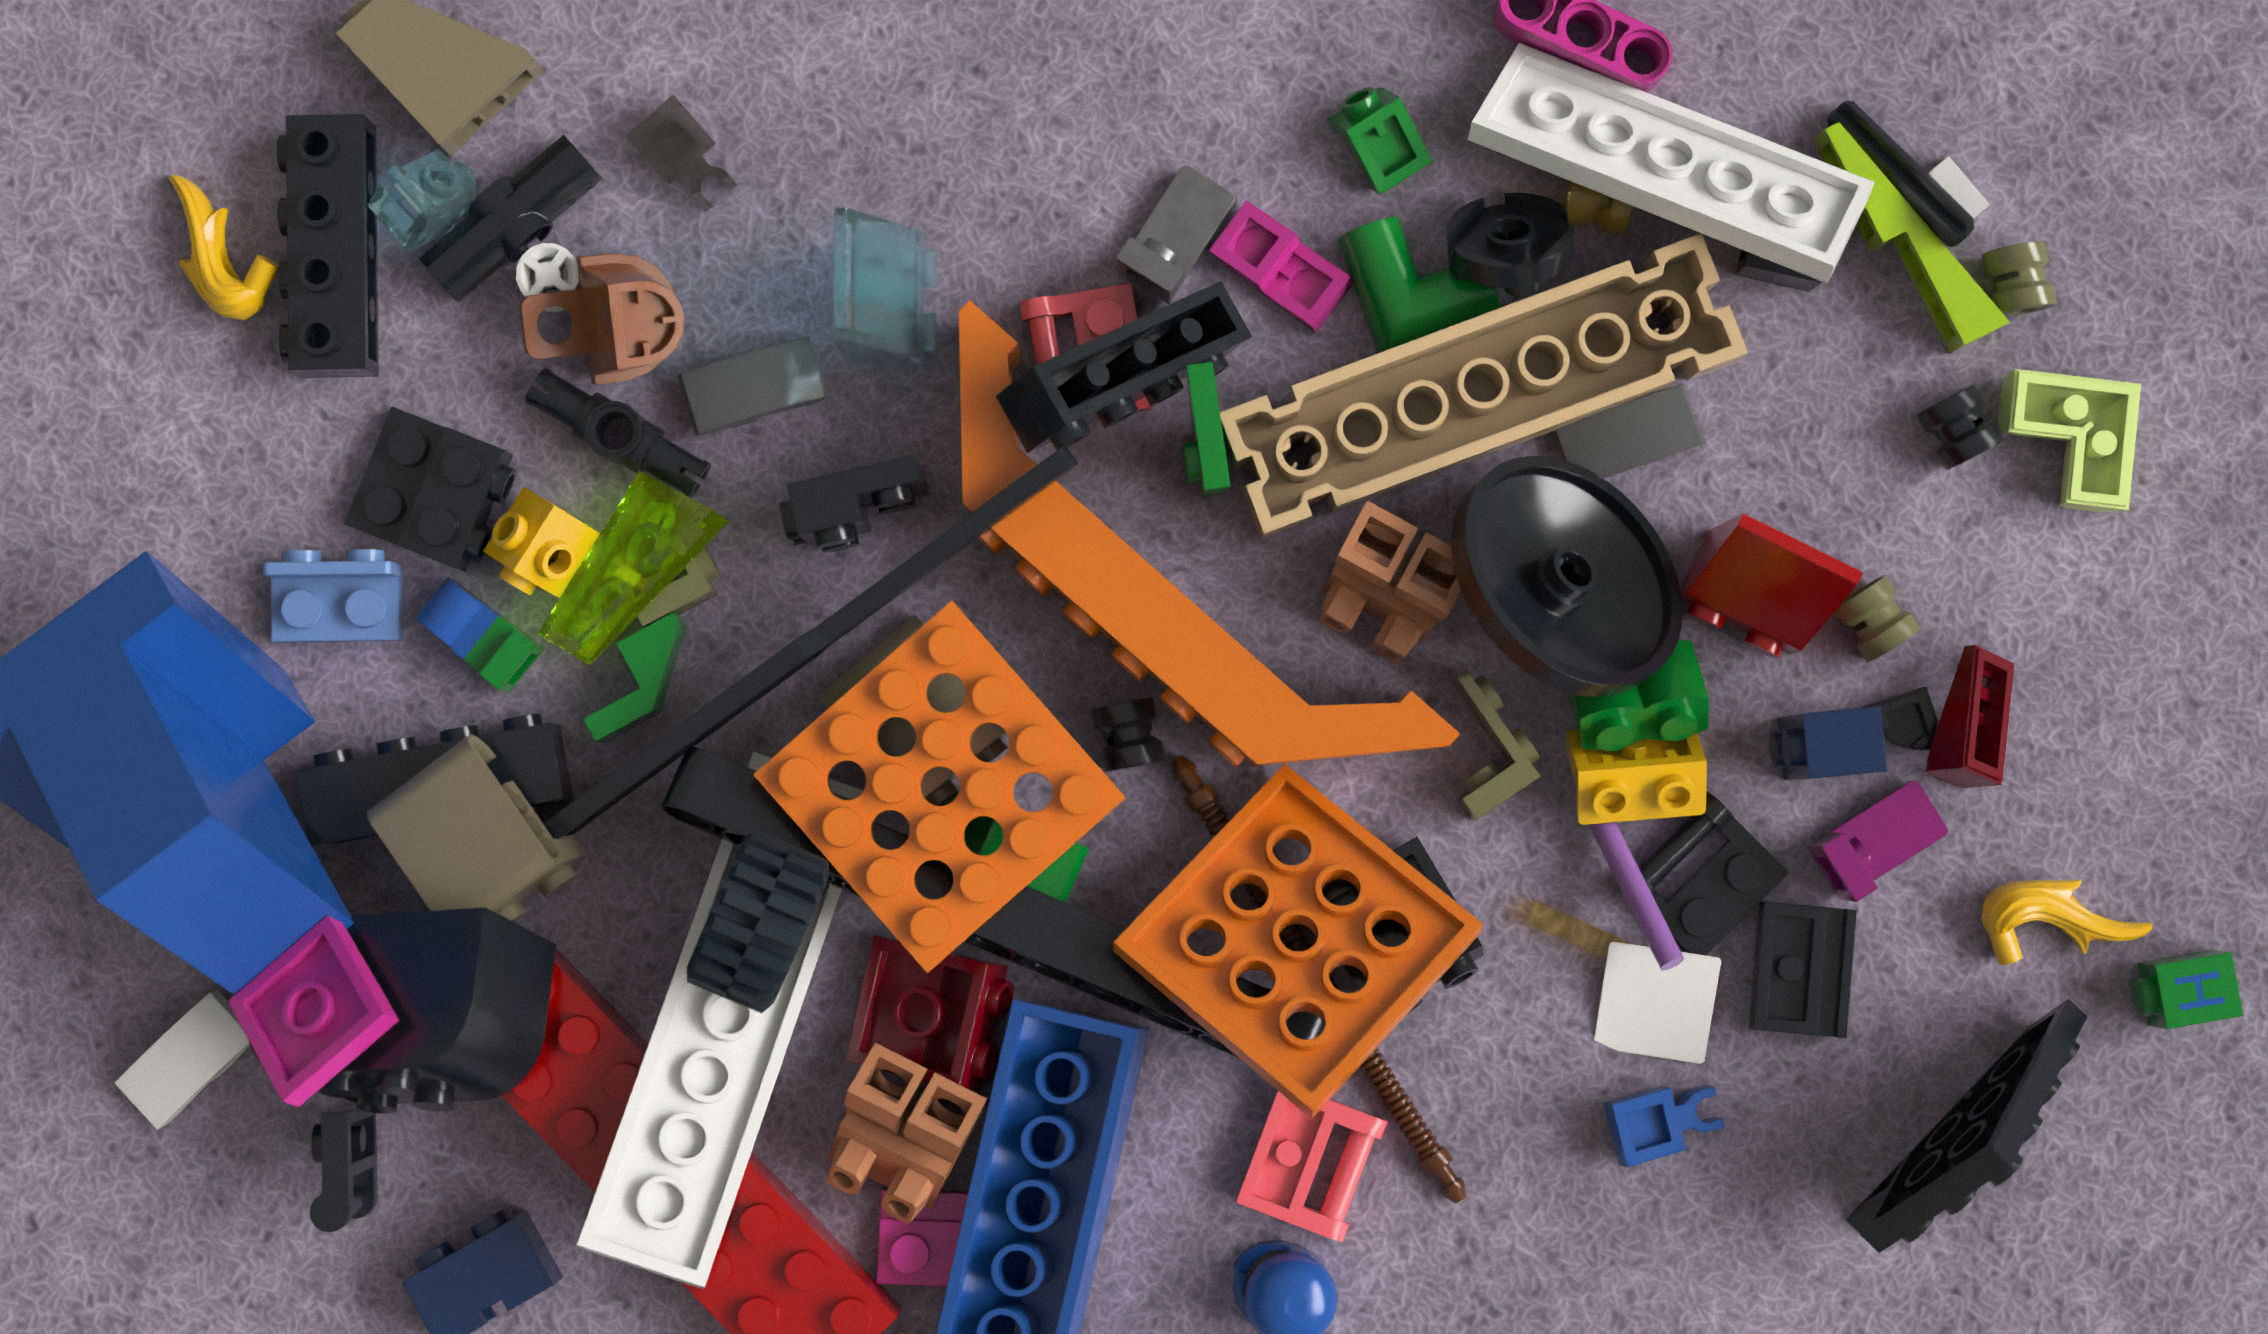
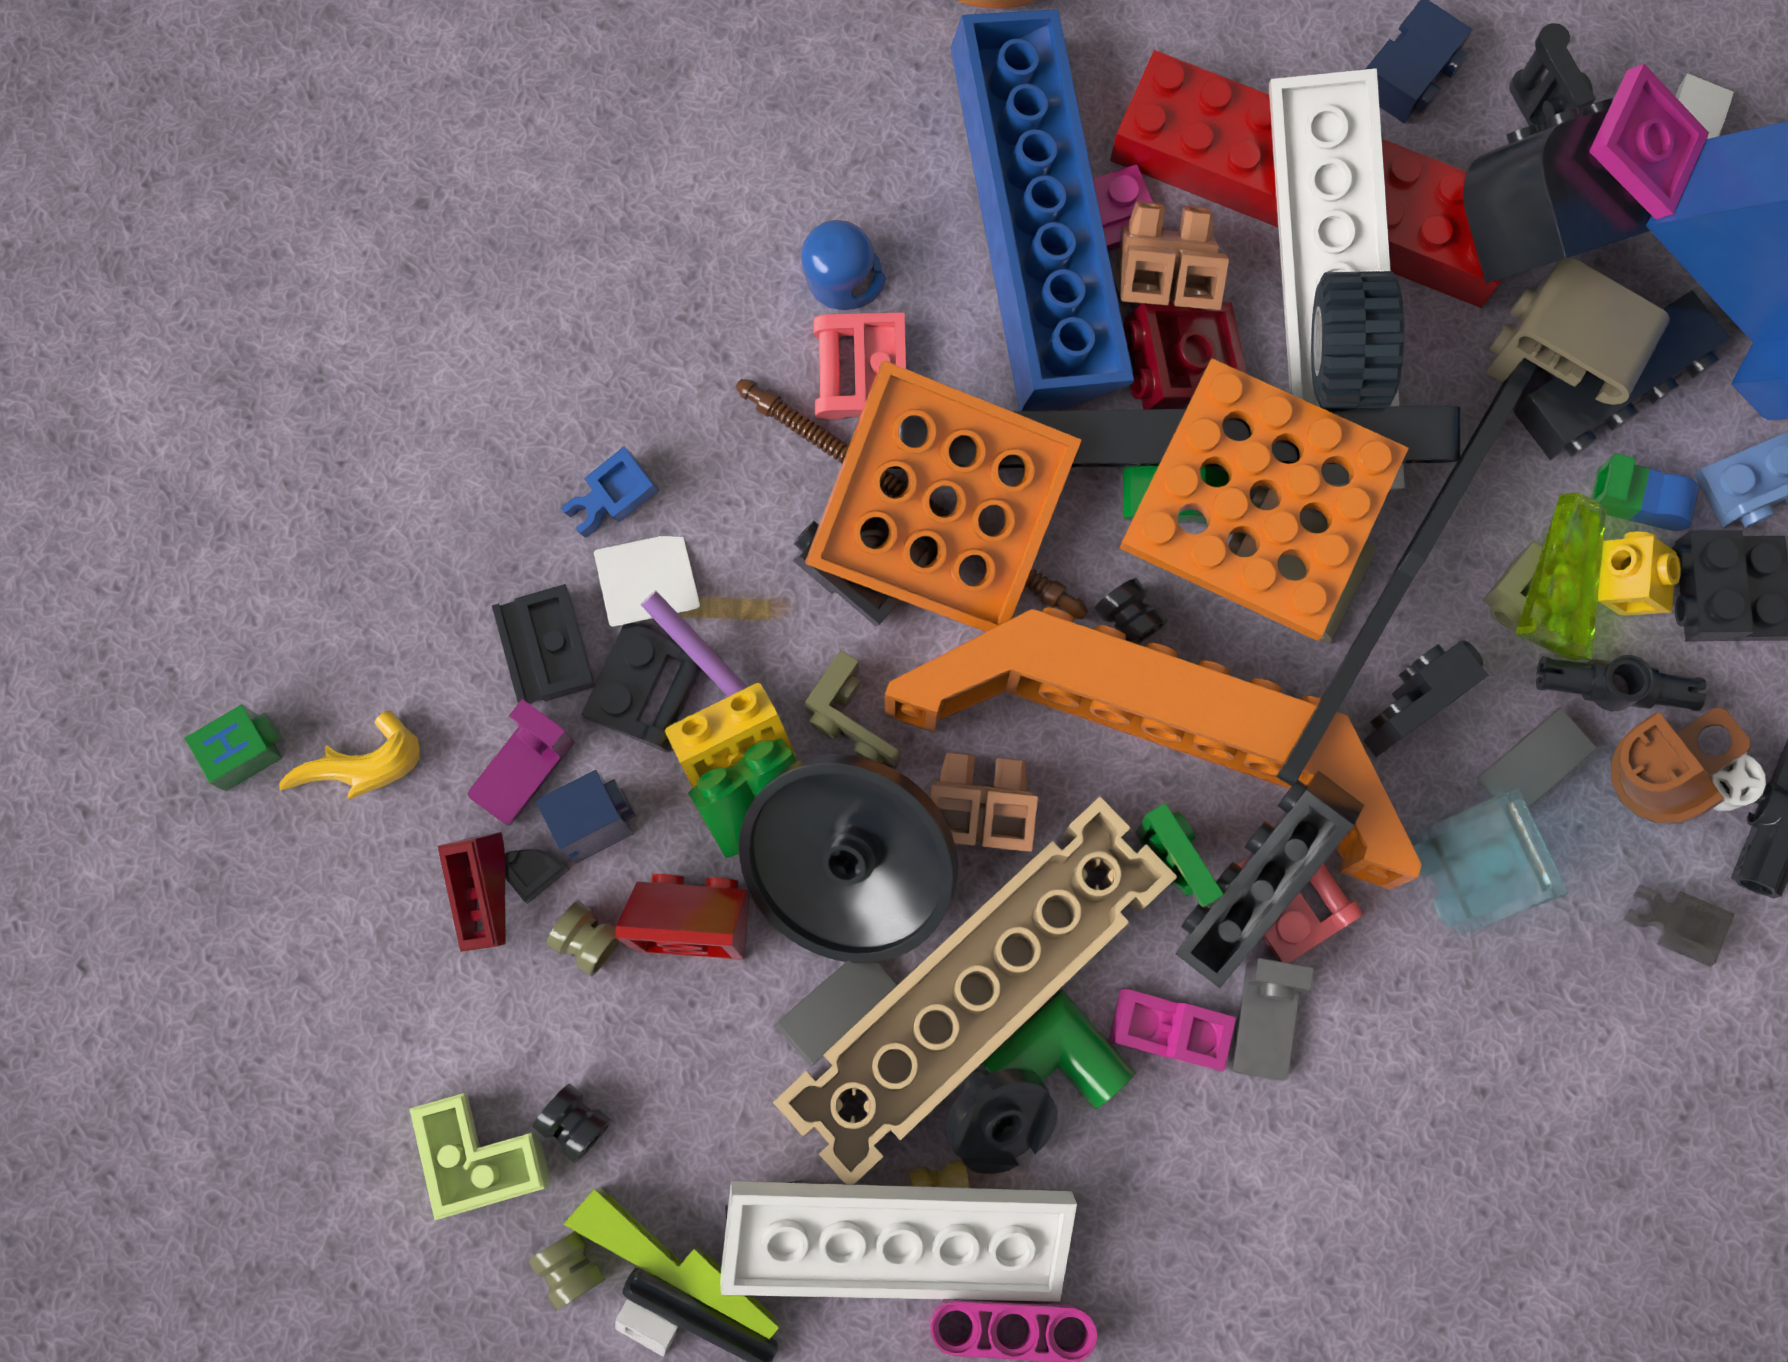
camera: 160 degrees right, 10 degrees down
(652, 659) = (1508, 520): green slope -> none
(1381, 137) = (1139, 1169): green bracket -> none
(1976, 1137) = (362, 563): black wing -> none

